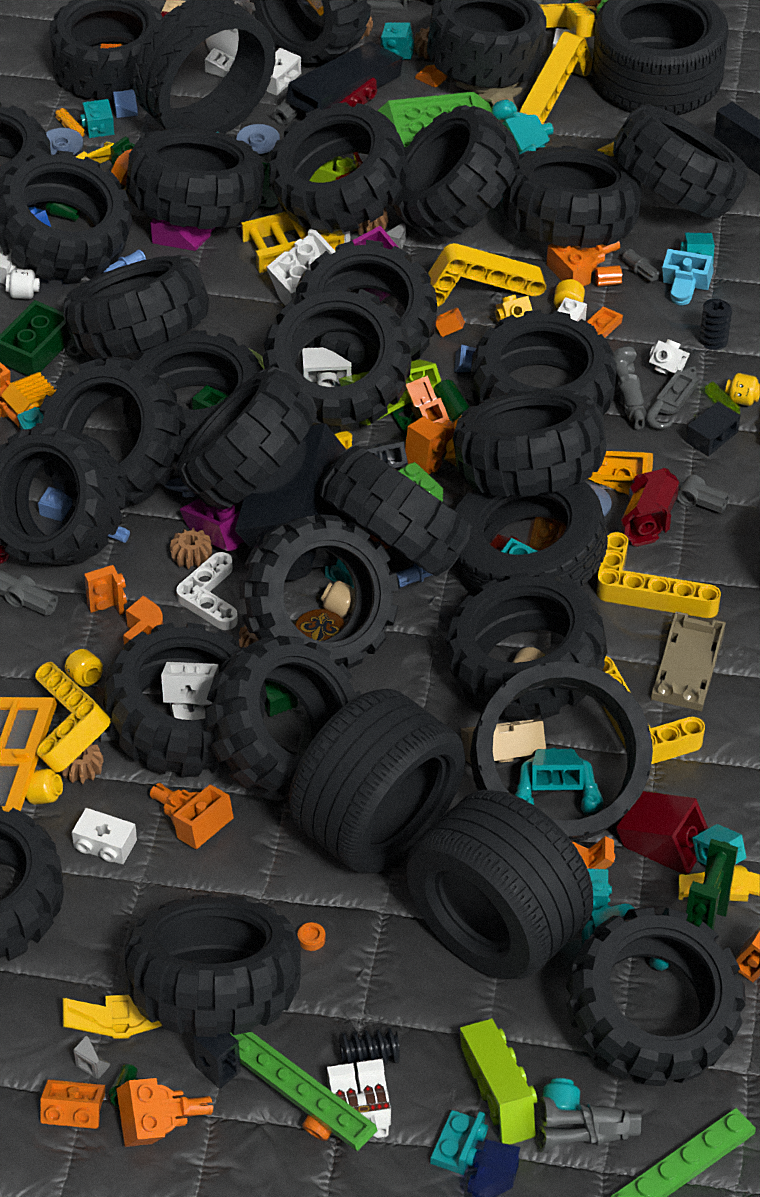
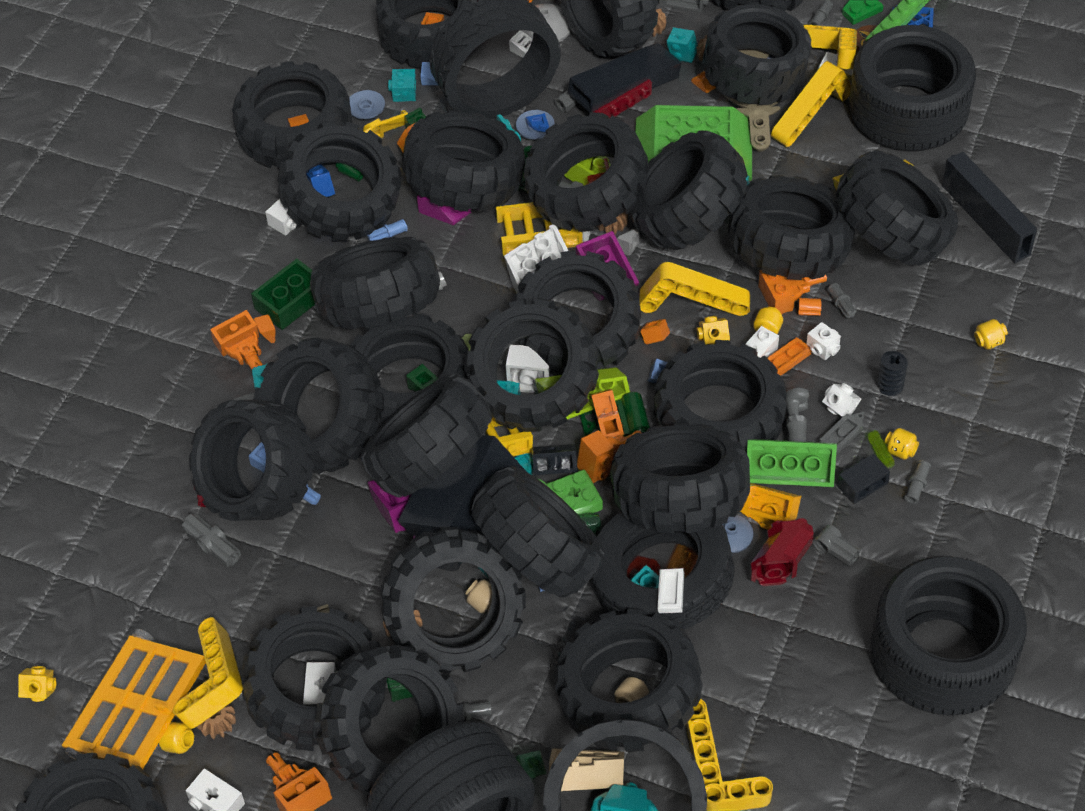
camera: 15 degrees right, 5 degrees up
(17, 371) = (266, 327): none -> orange slope
(22, 283) = (294, 238): white head -> none
(28, 392) = (265, 347): light orange brick -> none
(68, 121) = (379, 84): light orange axle -> none
(83, 667) = (243, 625): yellow head -> none
(105, 589) = (279, 553): orange bracket -> none
(142, 617) = (309, 591): orange brick -> none
(187, 682) = (317, 662): white brick -> none
(190, 548) = (367, 522): medium nougat gear -> none
(202, 594) = (365, 569): white beam -> none
(262, 135) = (538, 122): none -> blue tile
(285, 70) = (573, 60): white brick -> none
(320, 624) = (456, 619): tile -> none
(525, 128) = (767, 151): teal torso -> none
(550, 550) = (671, 590): none -> white tile
(634, 304) = (823, 341): none -> white brick
(642, 420) = (792, 462): none -> bright green slope
(651, 591) = (760, 631): yellow beam -> none
(685, 273) = (879, 316): medium azure brick -> none
(688, 662) = (778, 715): dark tan piece -> none
(698, 243) = (897, 293): teal head -> none

